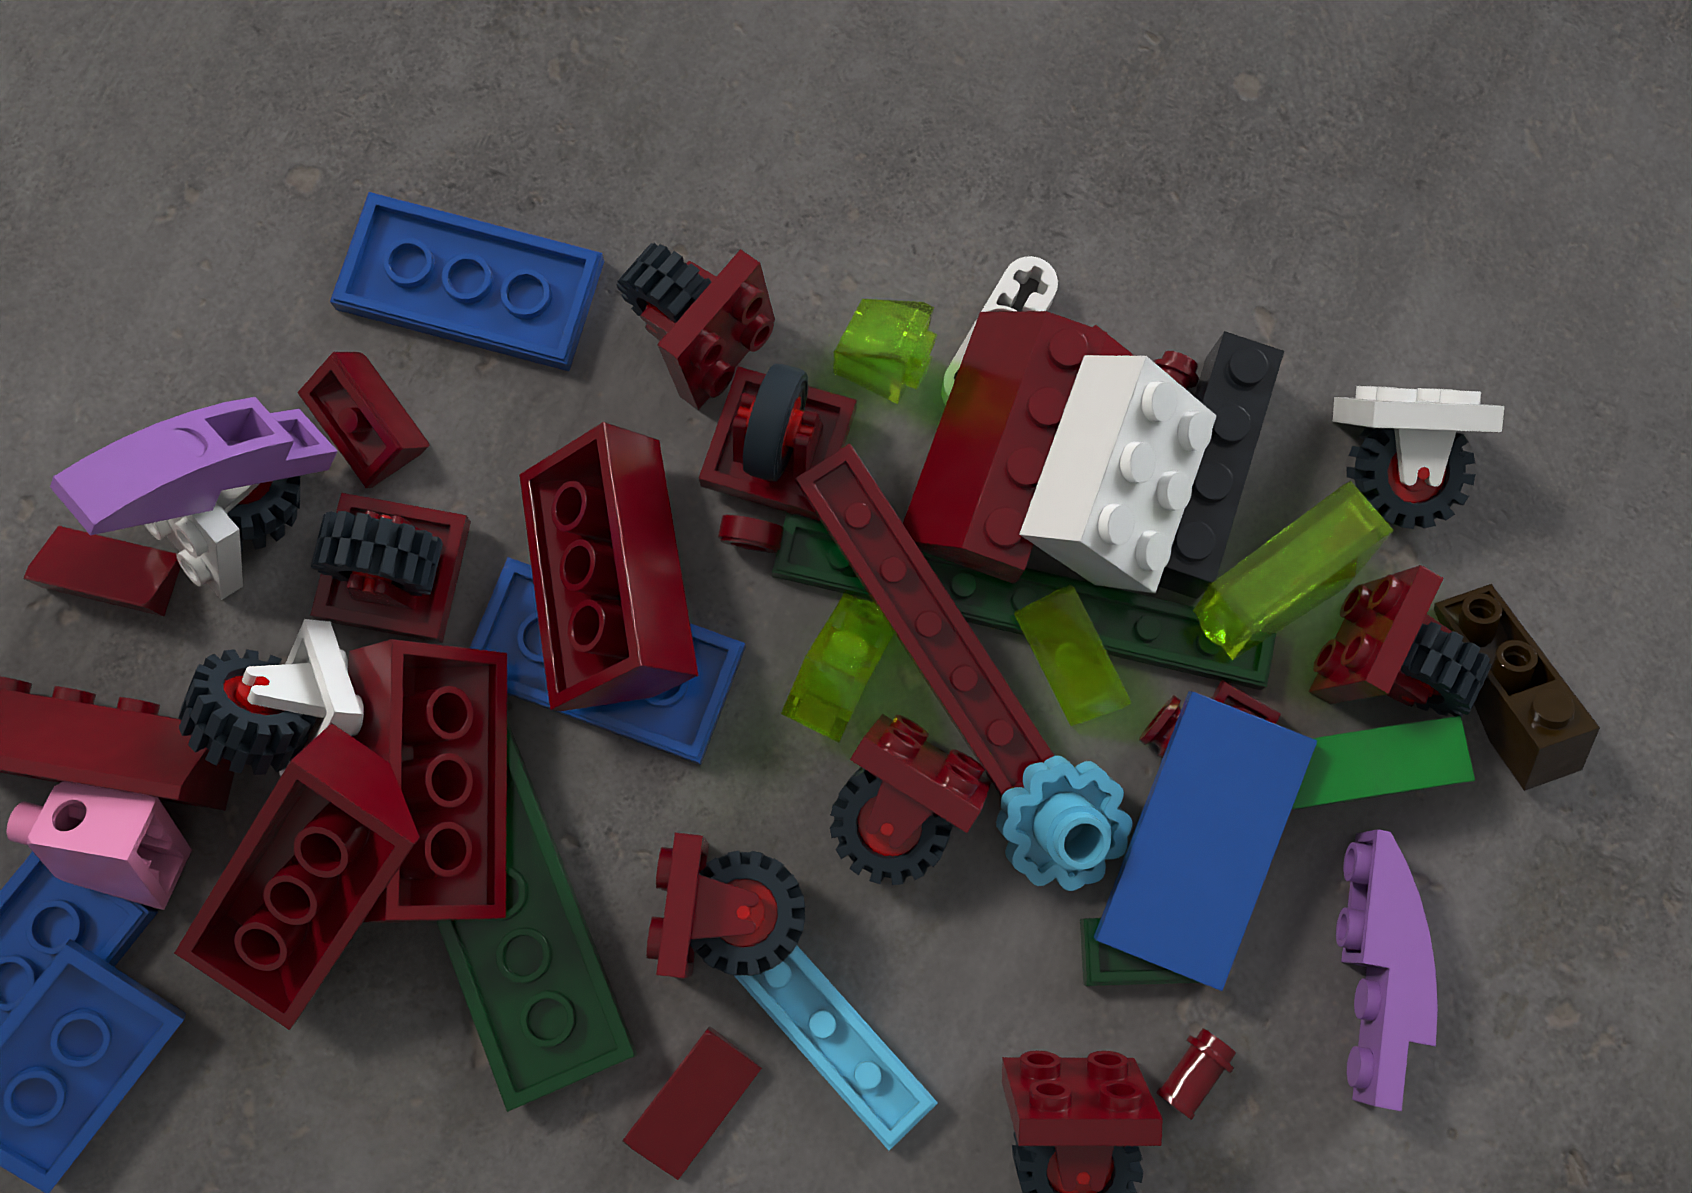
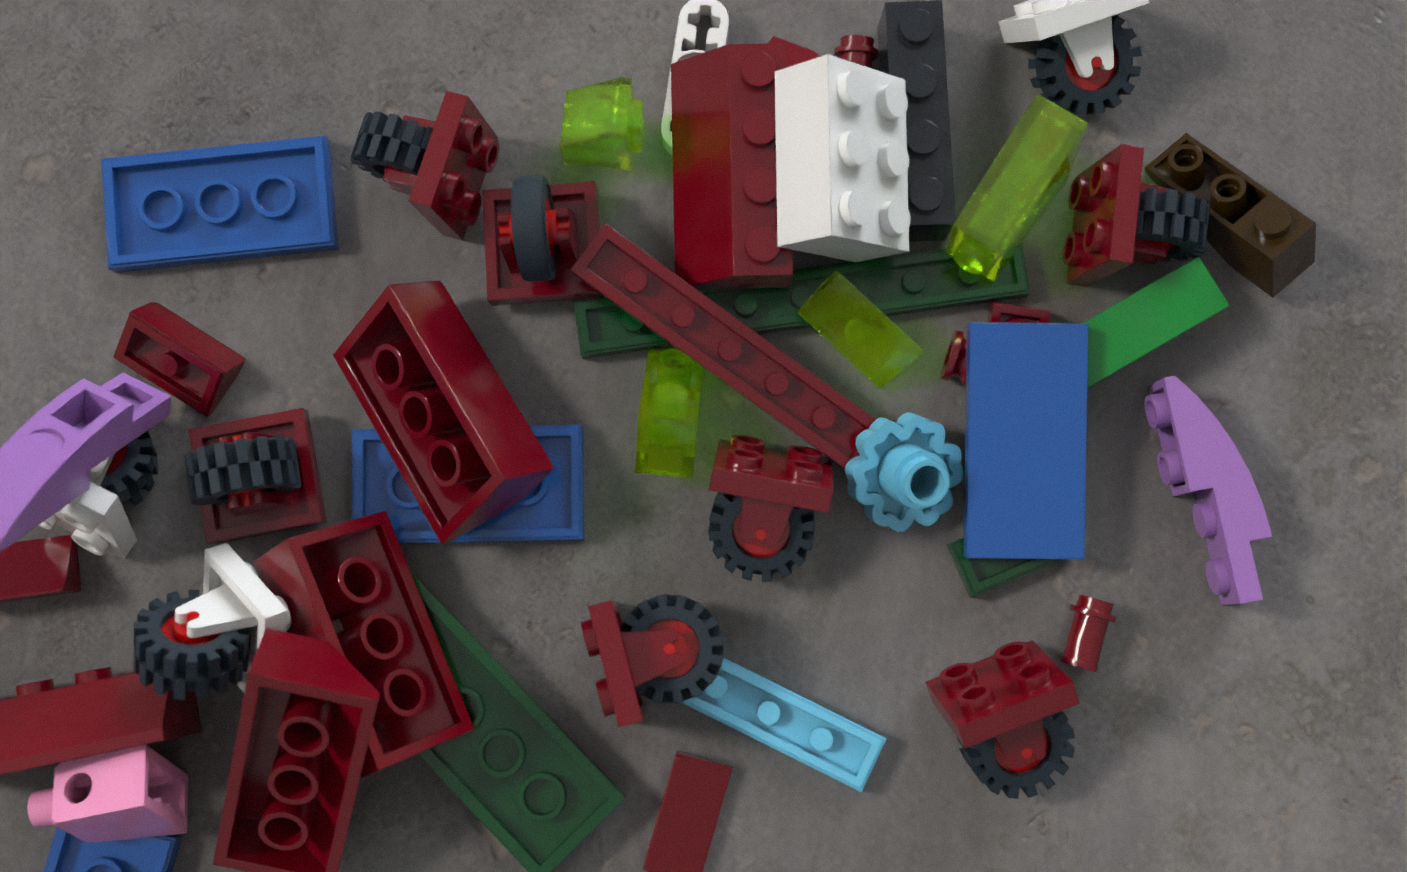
camera: 15 degrees left, 5 degrees up
(750, 533) = (550, 330): dark red tile -> none

